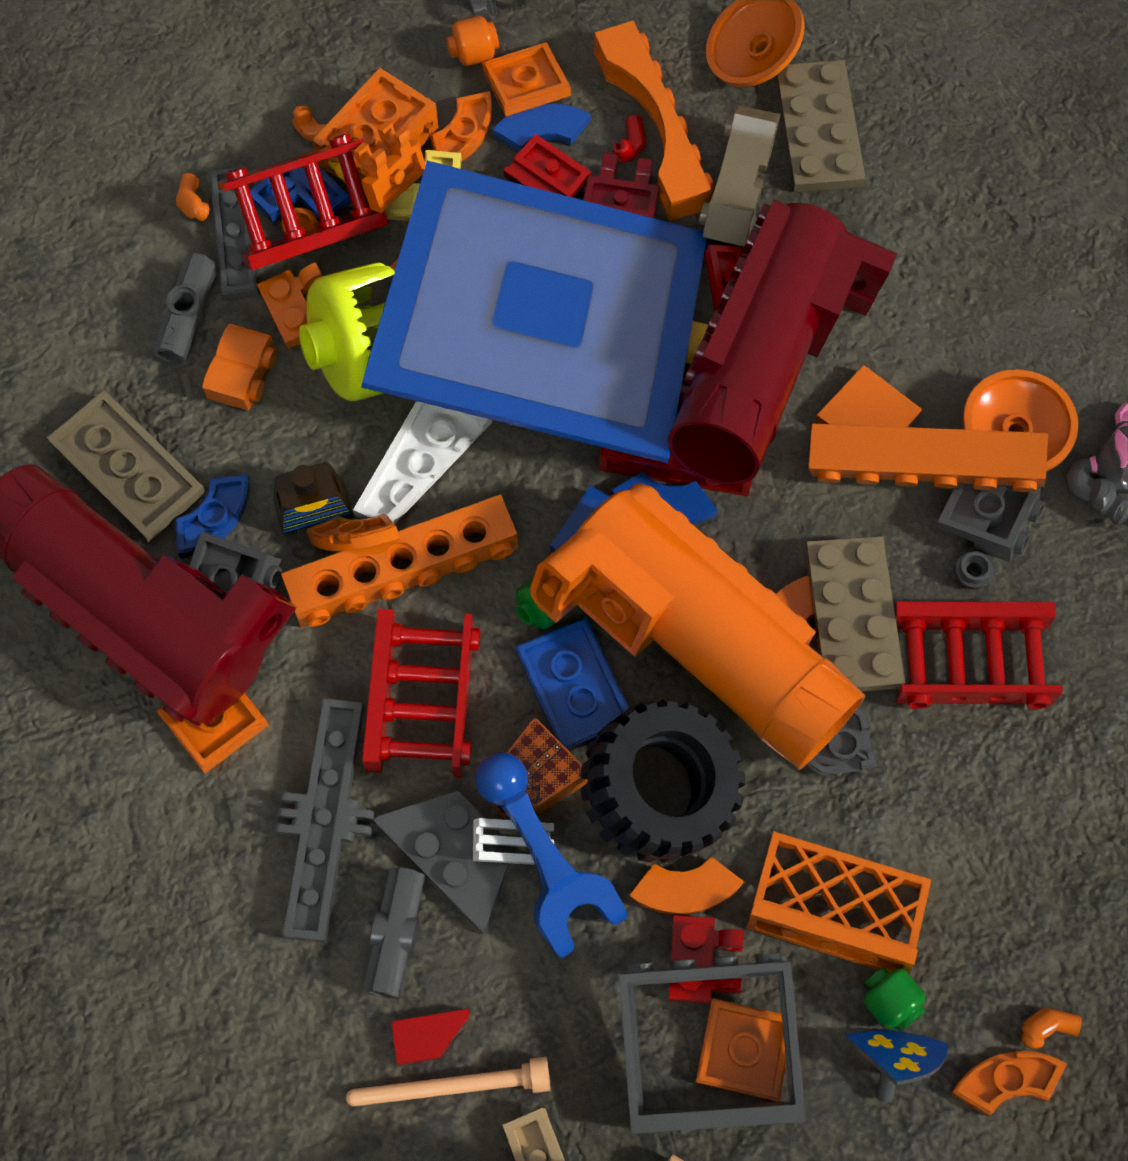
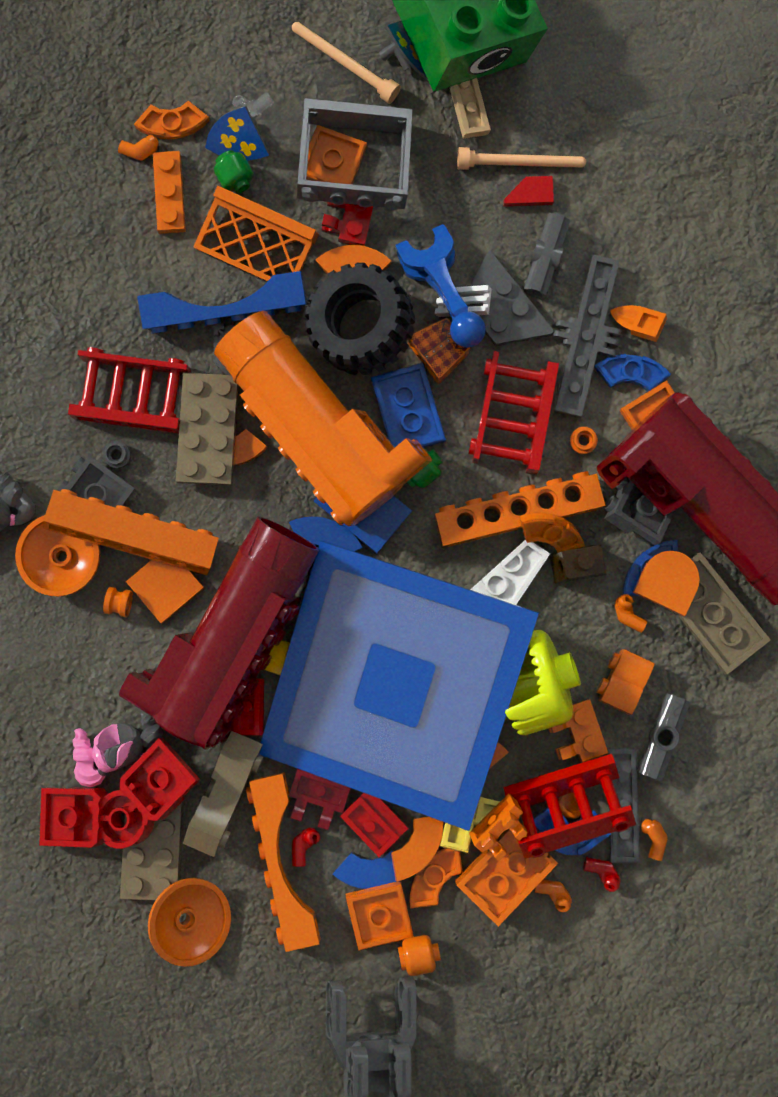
camera: 170 degrees left, 15 degrees up
(187, 489) = (669, 581): none -> orange tile
(243, 452) = (626, 615): none -> orange arm
(247, 851) = (640, 321): none -> orange plate
(249, 154) = (606, 872): none -> red arm
(252, 782) = (632, 369): none -> blue tile
(314, 661) = (585, 432): none -> orange plate
(491, 144) = (419, 849): none -> orange tile
(859, 136) = (93, 817): none -> red plate
(888, 1117) = (255, 107): none -> clear arm
(891, 208) = (113, 749): none -> hair
(926, 381) = (118, 602): none -> orange wheel
(946, 772) = (165, 309): none -> blue arch
(987, 963) = (169, 192): none -> orange plate

